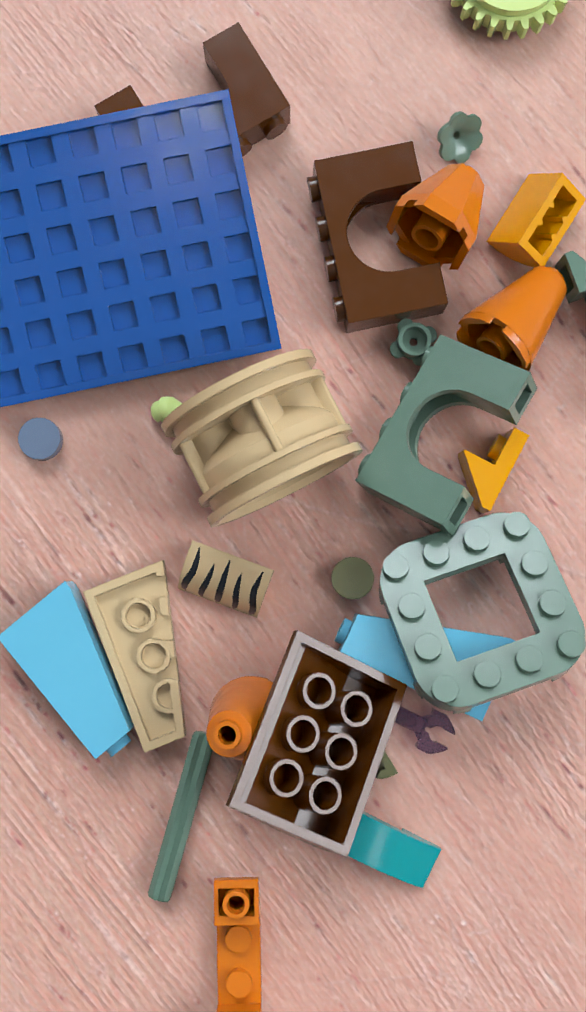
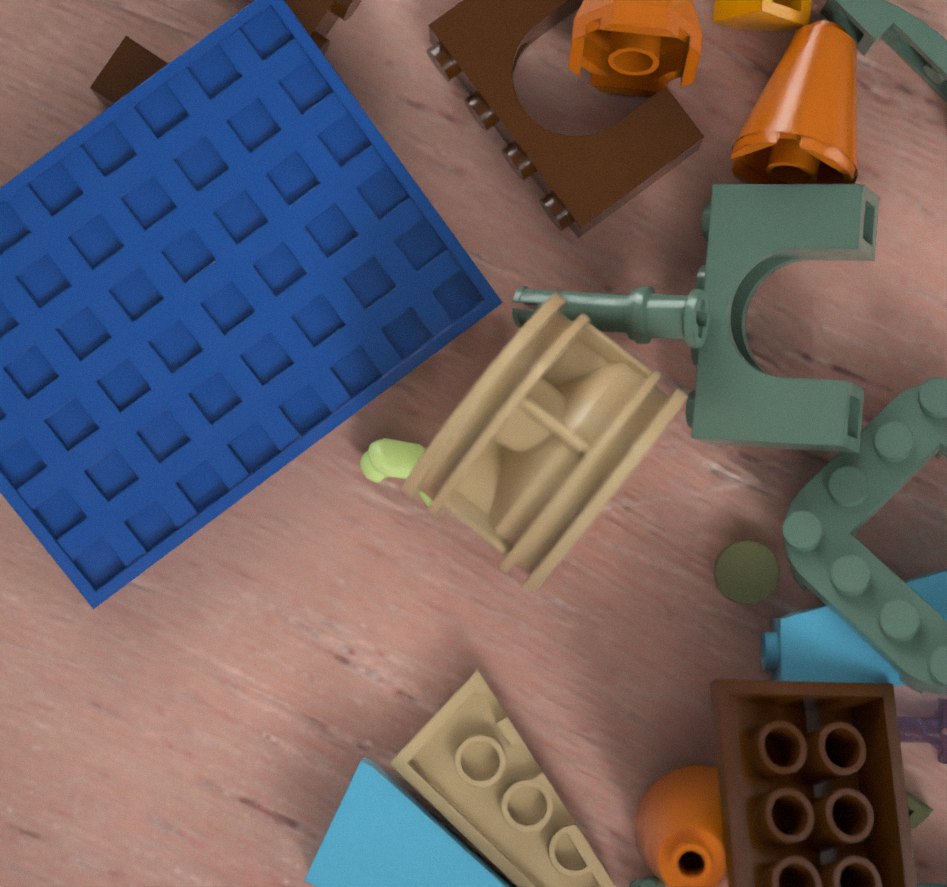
camera: 20 degrees left, 0 degrees up
(40, 439) = (228, 581): sand blue tile -> none
(224, 578) = (575, 655): tan brick -> none
(361, 392) = (640, 314): none -> sand green pin
(408, 331) = (662, 198): sand green plate -> none
(487, 478) = (867, 352): light orange slope -> none

